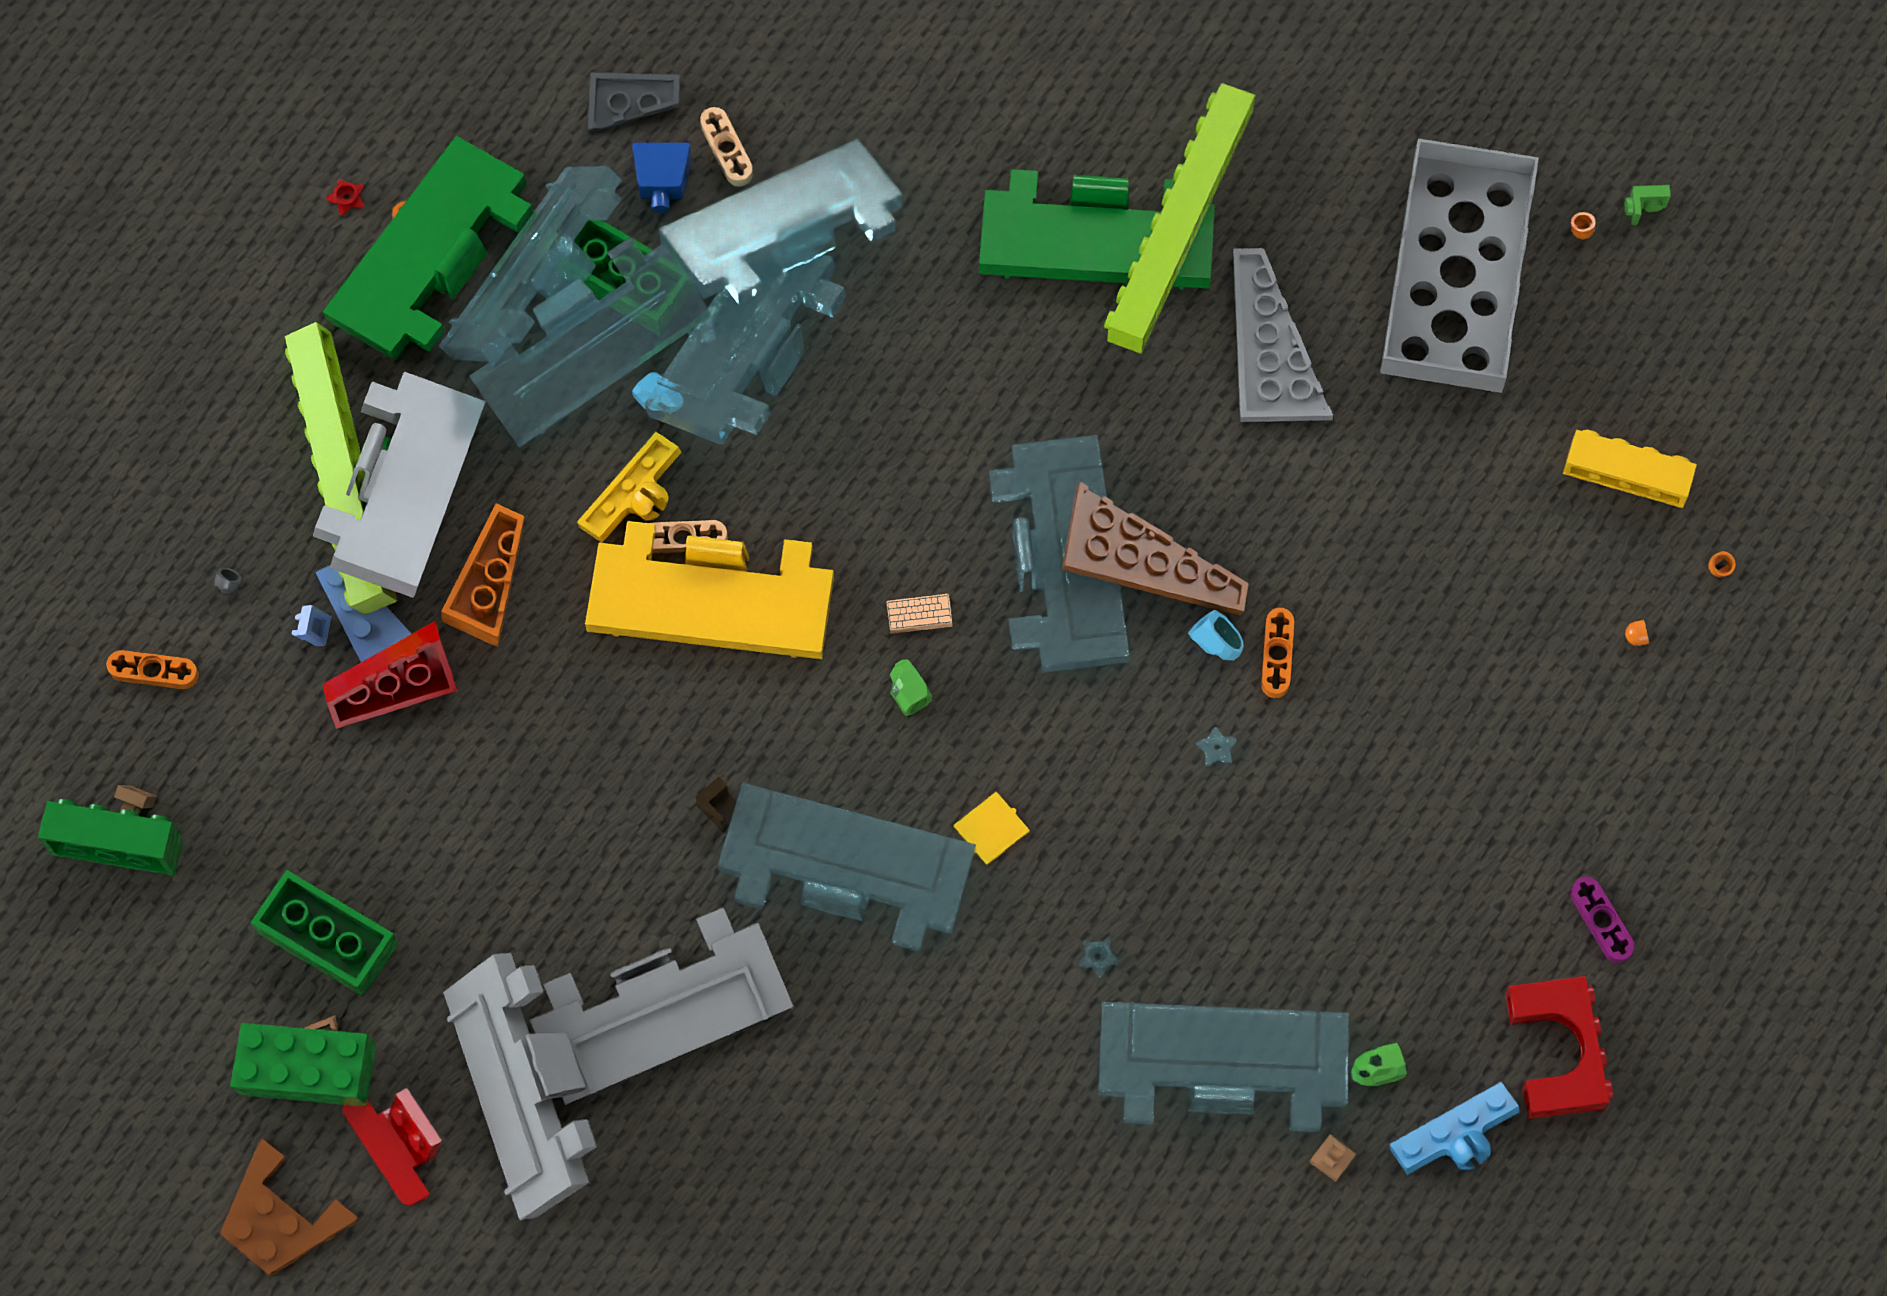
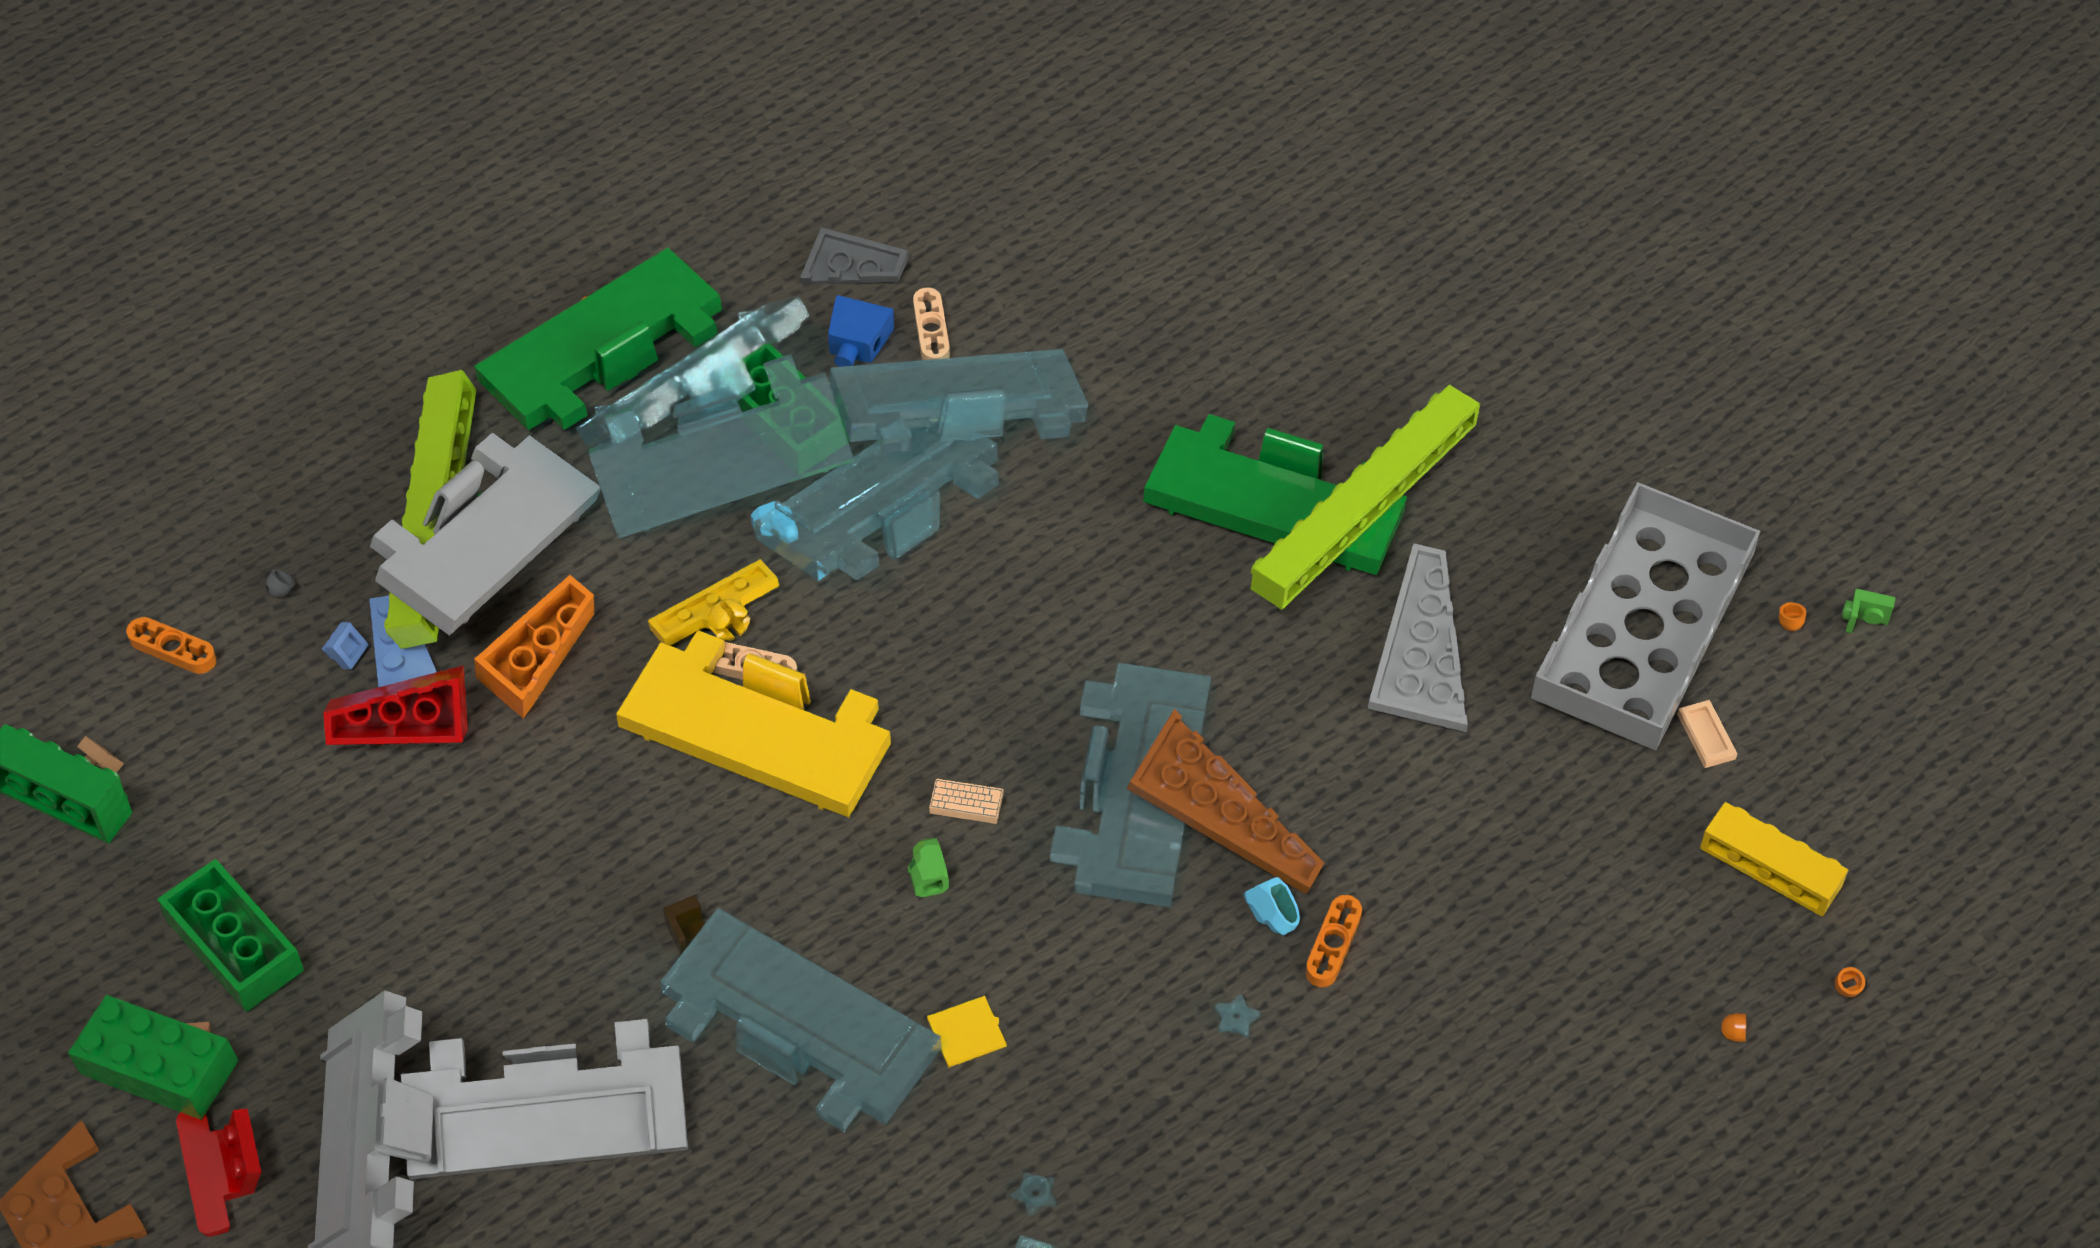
camera: 15 degrees right, 15 degrees down
(343, 189) = (543, 272): red plate -> none
(1539, 361) = (1707, 733): none -> light nougat tile

